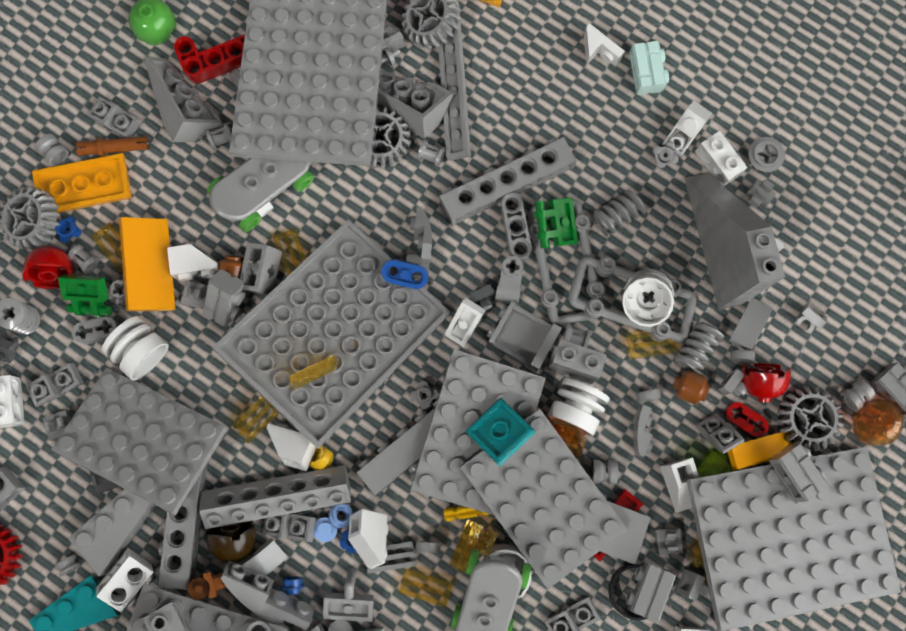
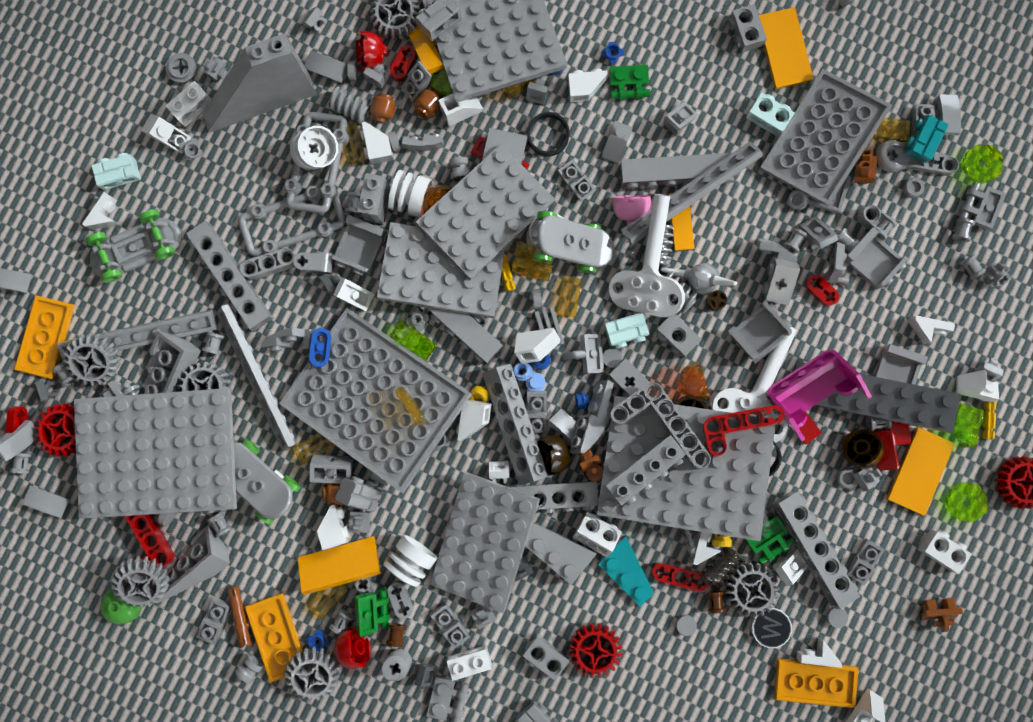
camera: 90 degrees left, 5 degrees up
(55, 320) = (396, 634): none -> reddish brown bush
(67, 565) = (593, 584): light grey bush -> none
(167, 41) = (139, 575): none -> light grey gear
(225, 469) = (498, 470): none -> white tile
(244, 430) = (465, 460): clear yellow tile -> none
(374, 200) = (258, 382): none -> light grey plate
(399, 385) = (413, 340): none -> clear neon green slope
(500, 432) = (438, 250): teal tile -> none
(560, 93) = (134, 247): none -> light grey piece
(562, 222) = (259, 226): green plate -> none
(618, 211) = (244, 182): light grey piece -> none
(646, 375) = (378, 145): none -> white slope
(650, 592) = (546, 121): light grey brick -> none
(668, 541) = (506, 113): light grey tile -> none
(691, 443) = (427, 103): none -> dark orange head

